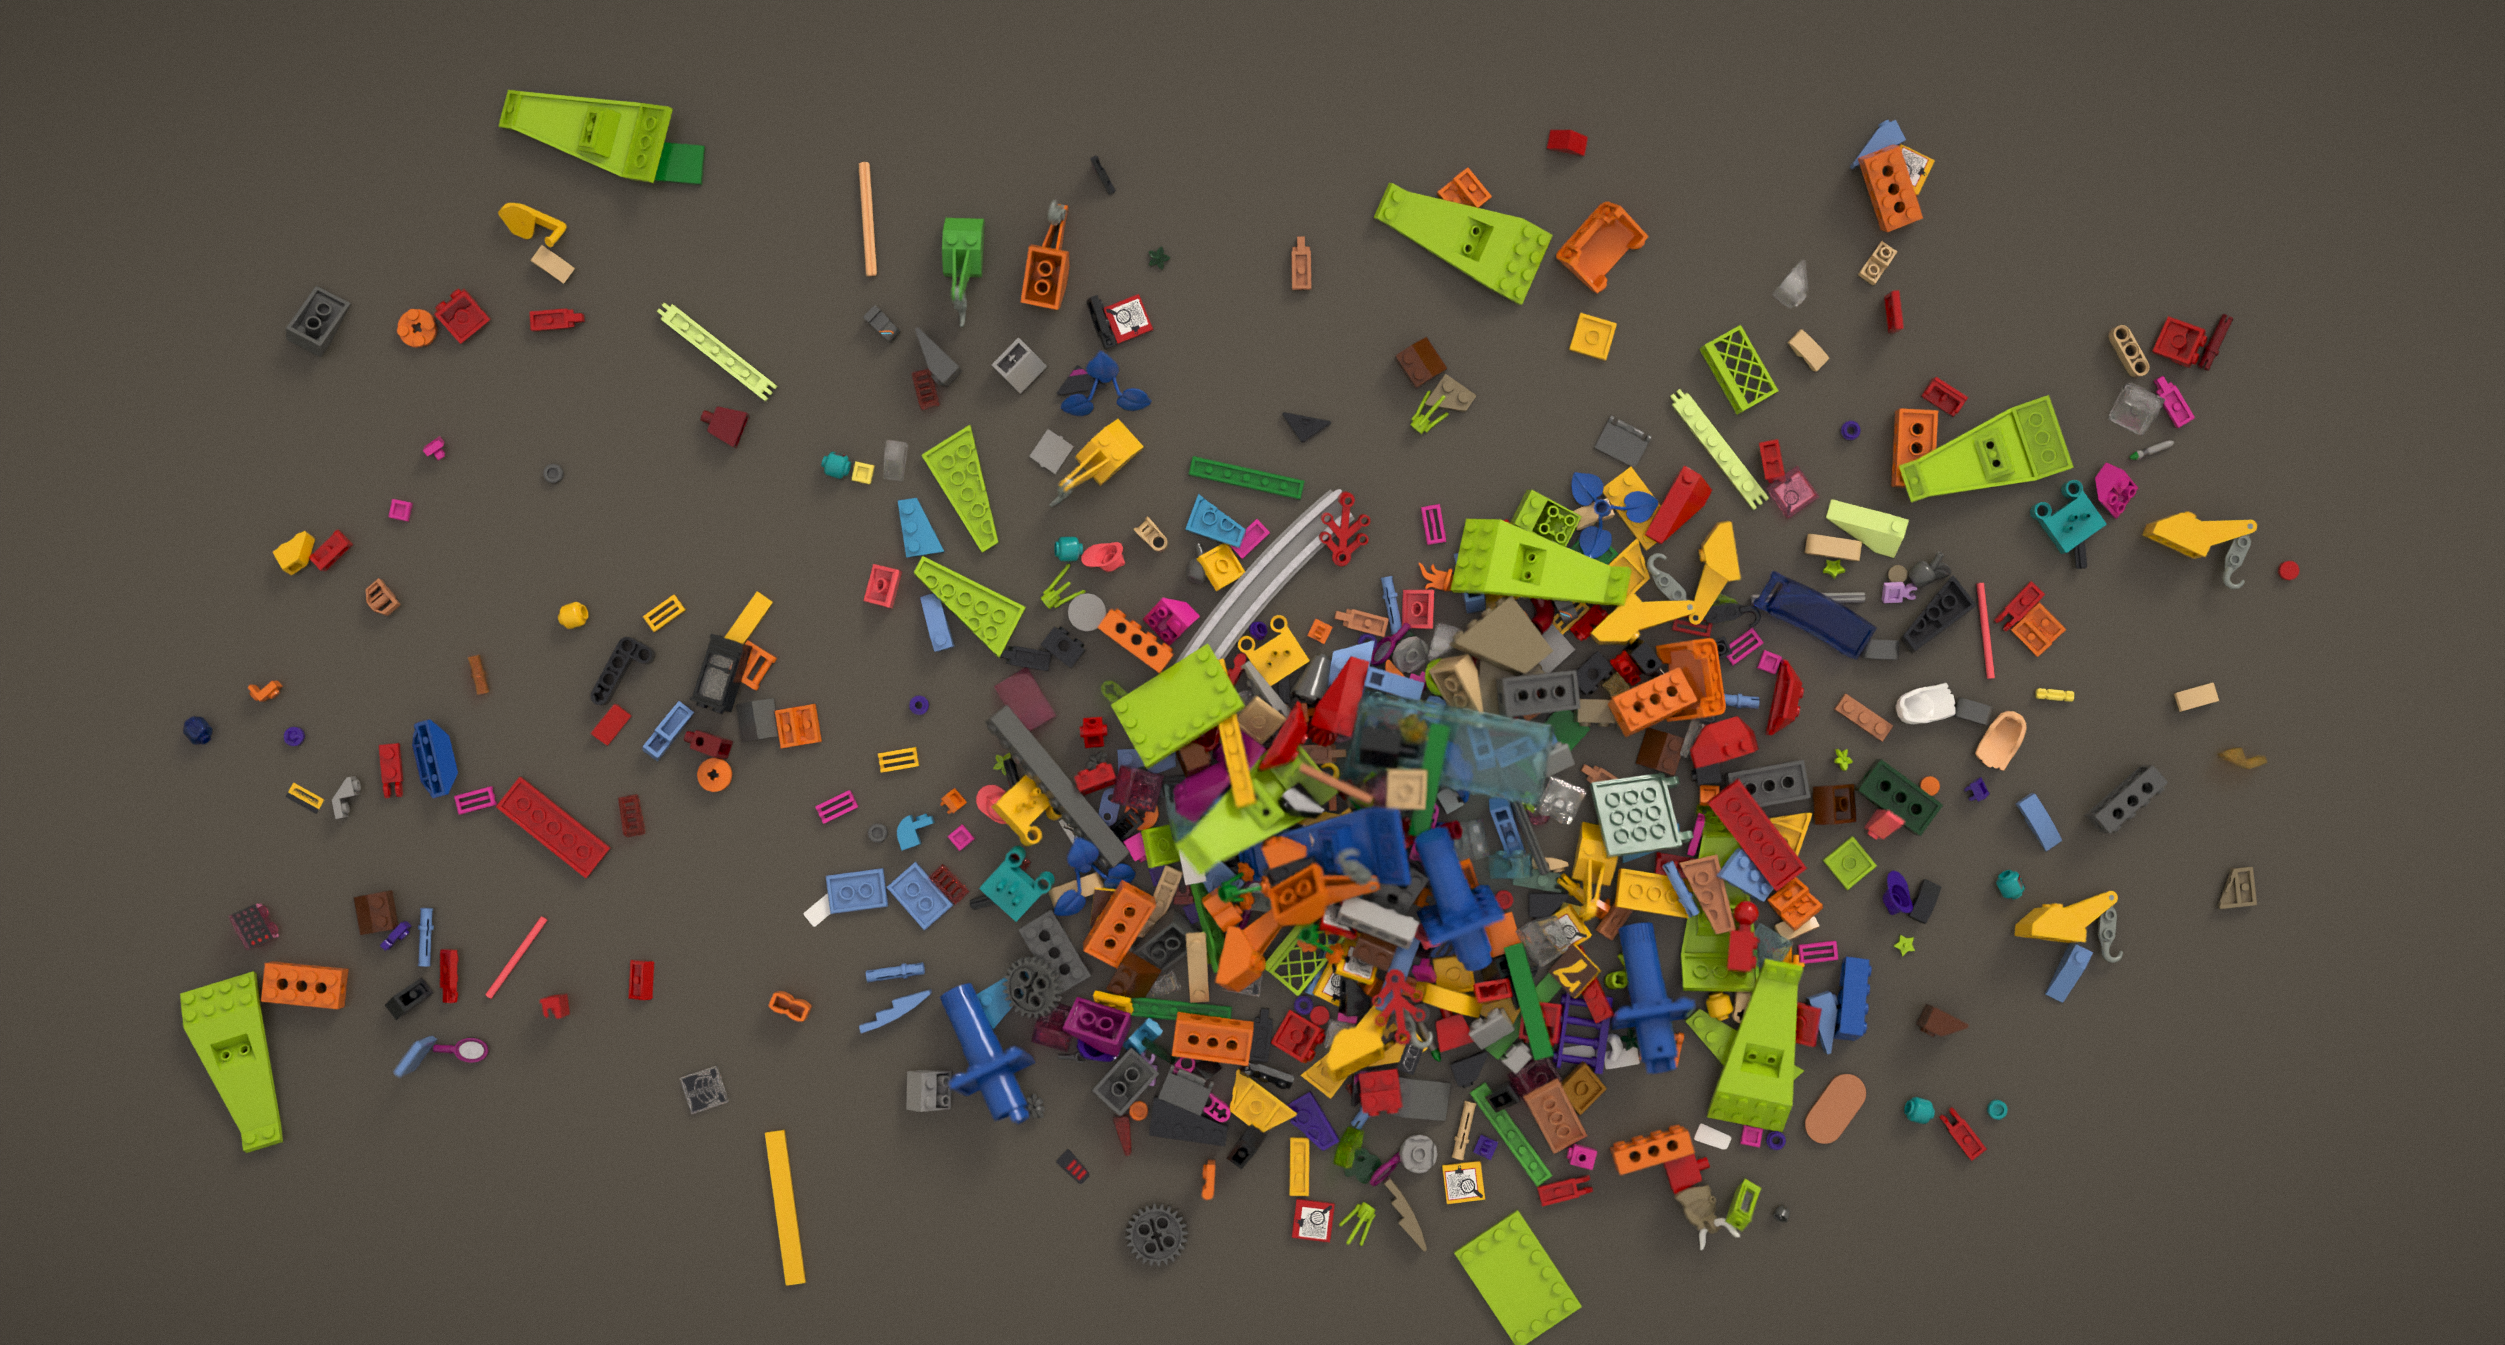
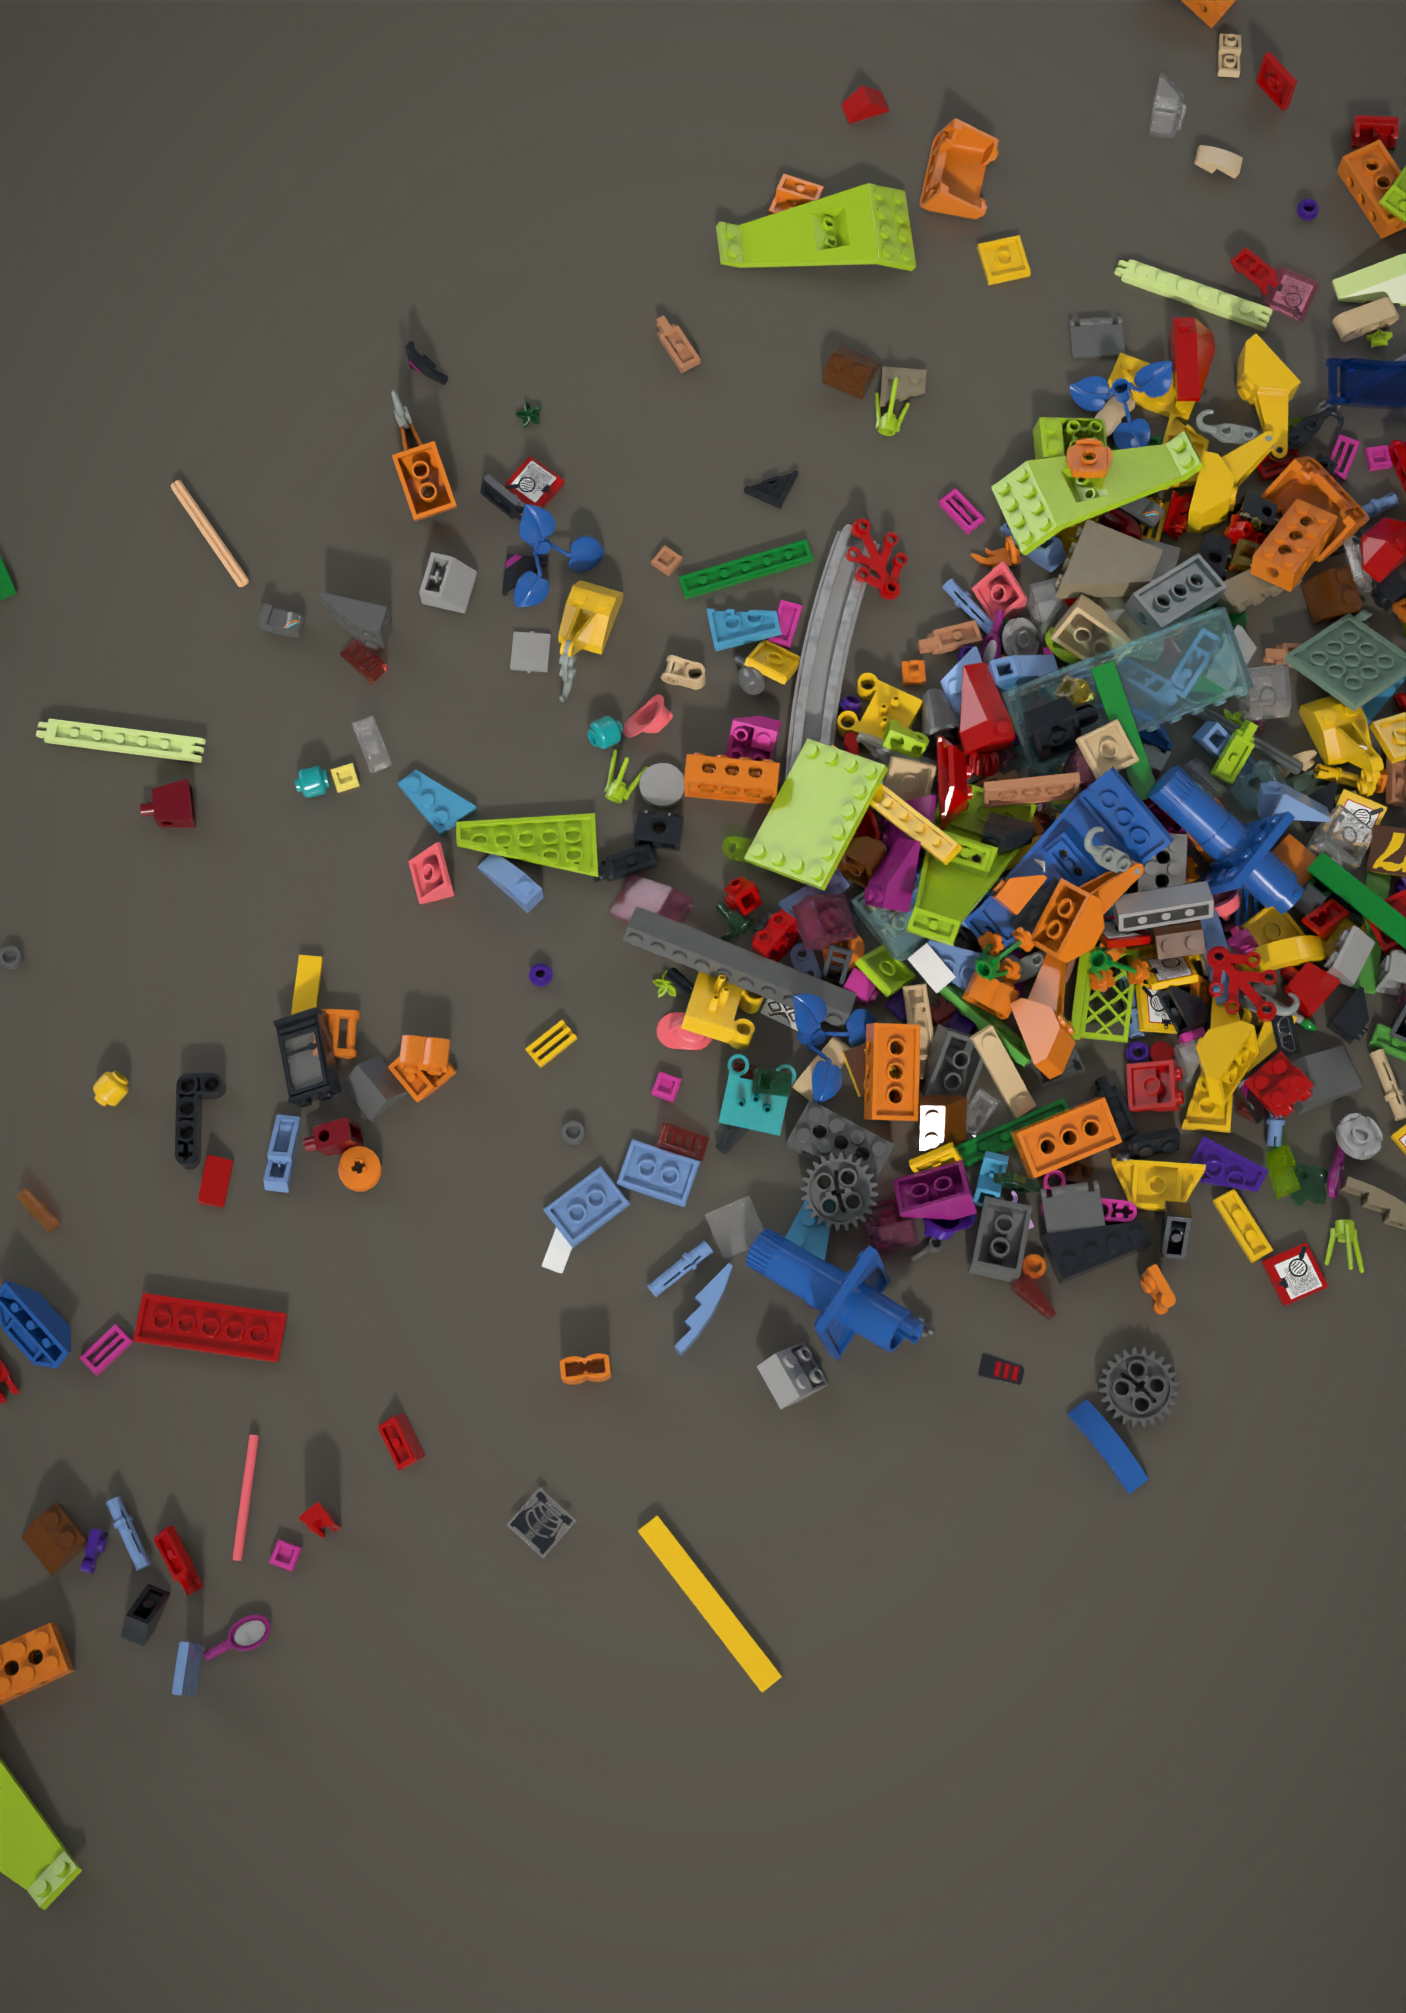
camera: 25 degrees left, 15 degrees down
(522, 1011) = (285, 1555): none -> dark pink tile
(640, 830) = (302, 1278): clear red slope -> none
(677, 604) = (216, 1042): yellow tile -> none
(802, 720) = (424, 1054): none -> orange brick
(822, 813) = (524, 1113): dark pink tile -> none
(907, 830) = (605, 1109): dark azure brick -> none
(951, 965) = (734, 1226): none -> clear tile
(953, 801) = (635, 1050): orange tile -> none
(961, 478) = (453, 726): lime wing -> none
(962, 256) = (330, 513): bright green slope -> none
(1027, 886) = (771, 1082): none -> clear green slope
(1076, 749) = (735, 922): none -> clear green plant
(1112, 1259) = (1109, 1446): none -> blue slope
(1192, 437) = (666, 560): none -> nougat tile
(1274, 687) = (904, 740): none -> lime leg
(1507, 834) = (1235, 753): none -> lime hinge
(1519, 895) = (1280, 798): none -> medium blue slope
(1534, 553) = (1084, 468): none -> orange plate
(1723, 374) = (1157, 224): lime fence -> none

